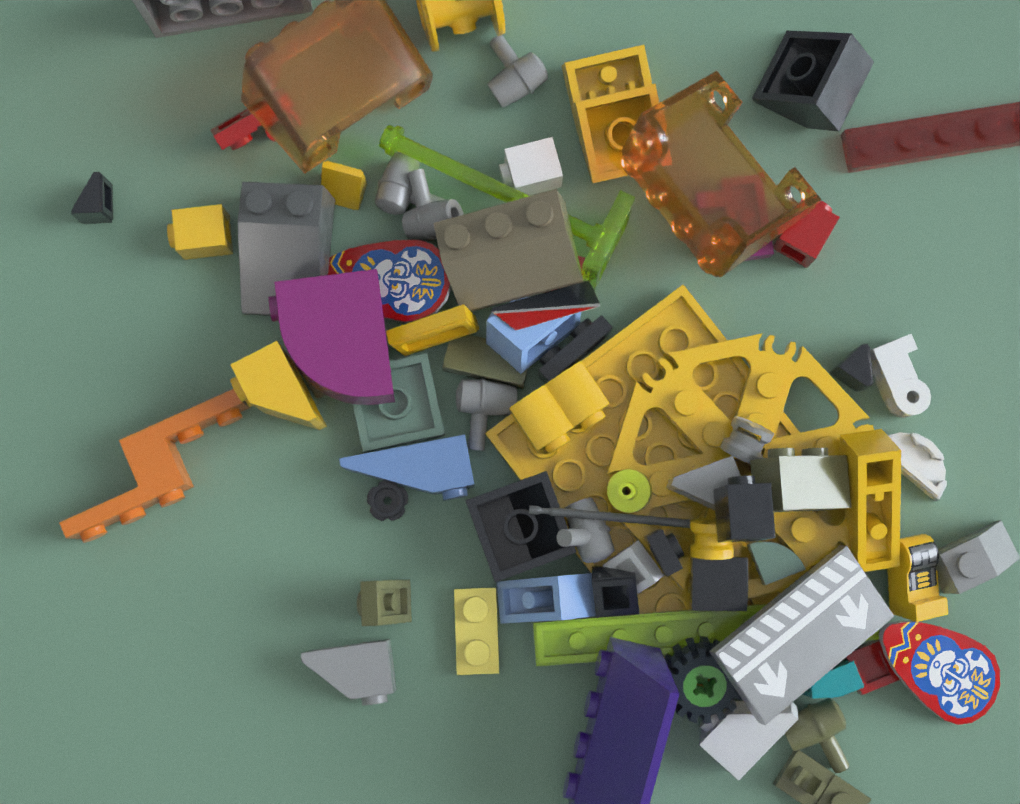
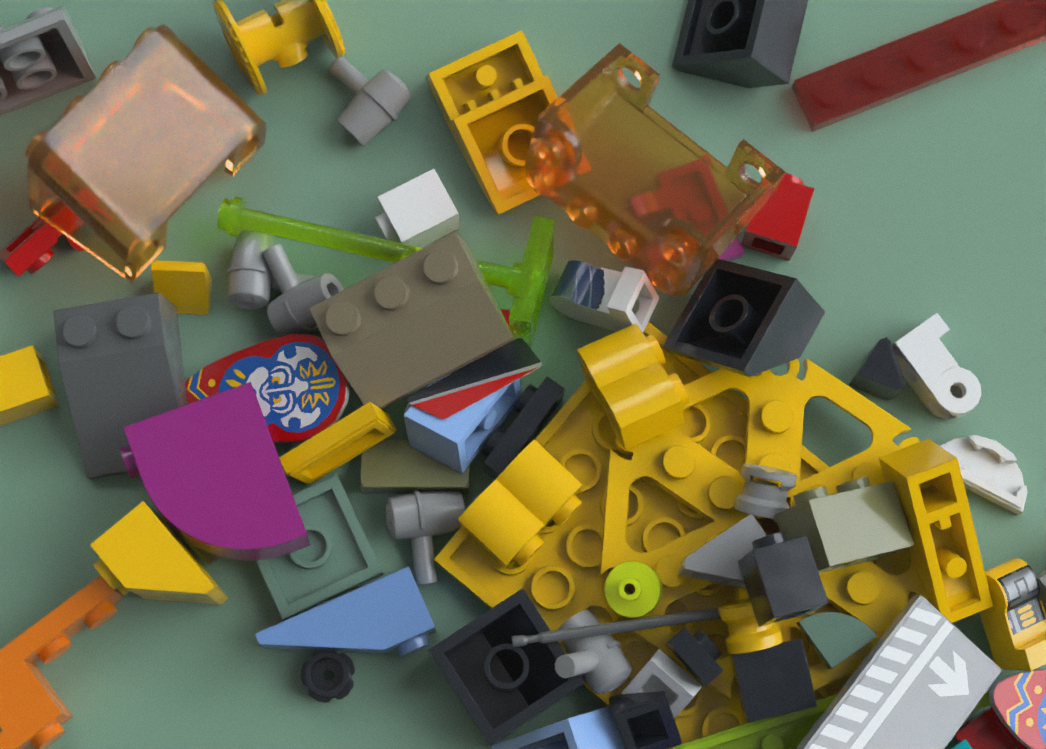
camera: 15 degrees left, 5 degrees down
(660, 264) = (604, 296): none -> white leg
(665, 337) = (632, 385): none -> yellow brick
(762, 306) = (745, 320): none -> black slope

